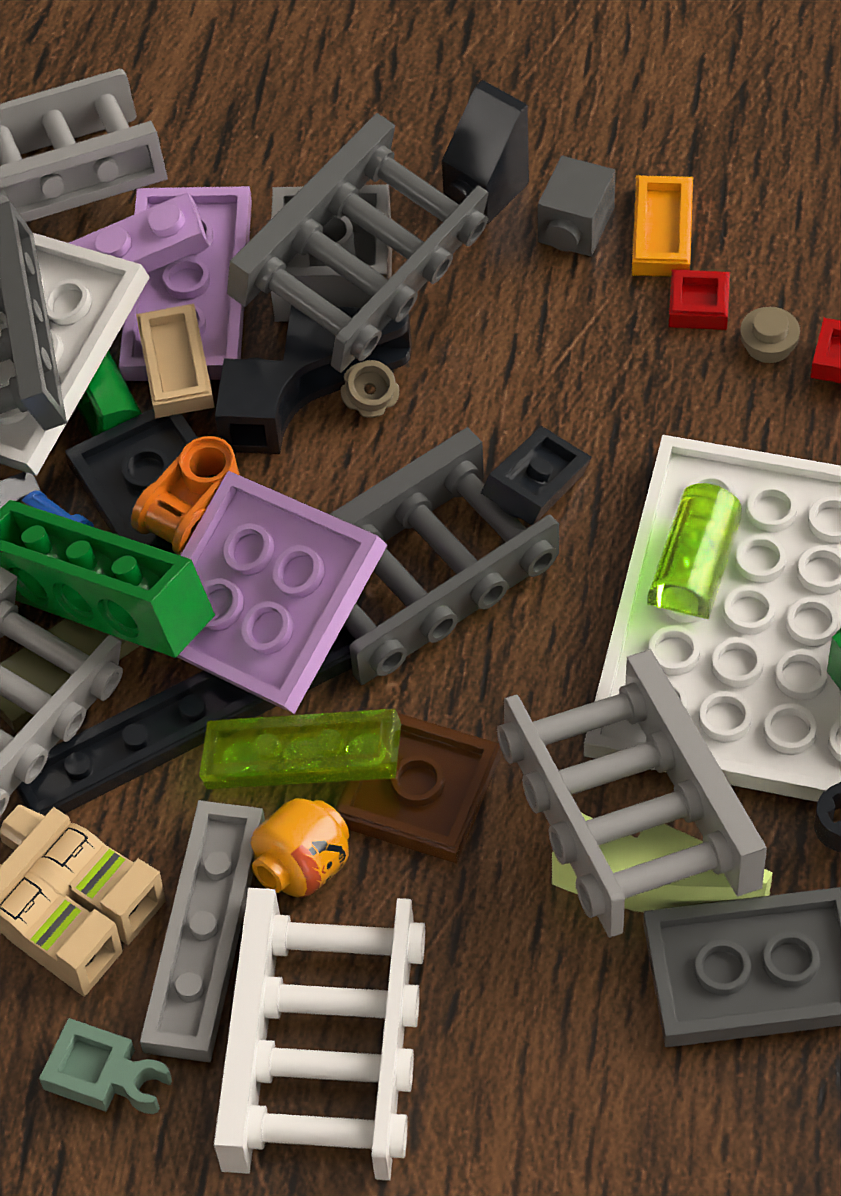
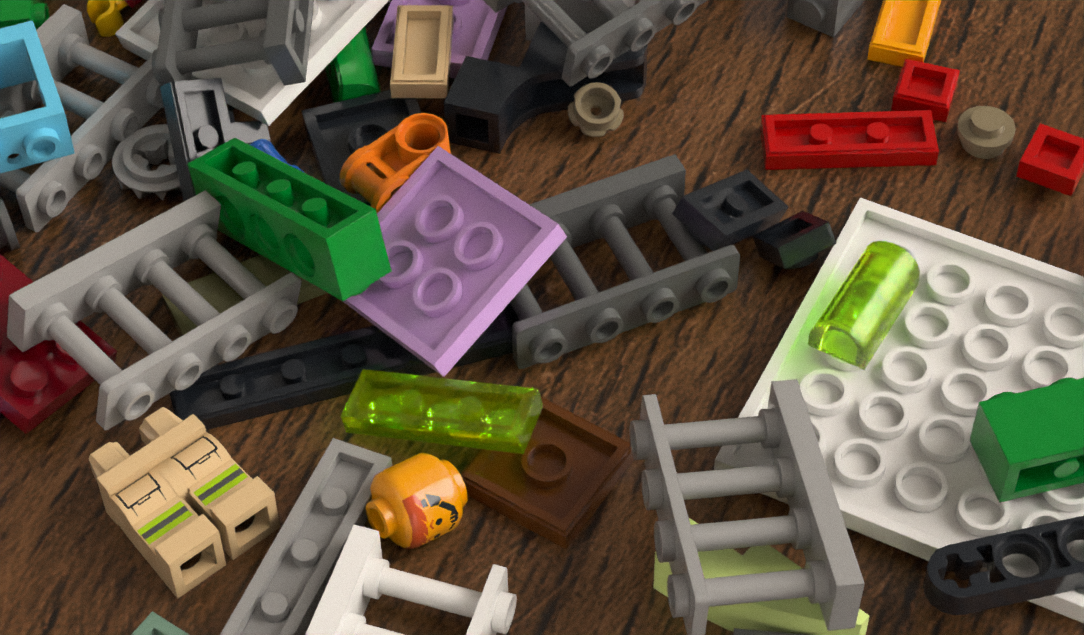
camera: 10 degrees right, 5 degrees down
(607, 493) = (794, 240): none -> black plate
(633, 370) = (848, 140): none -> red tile

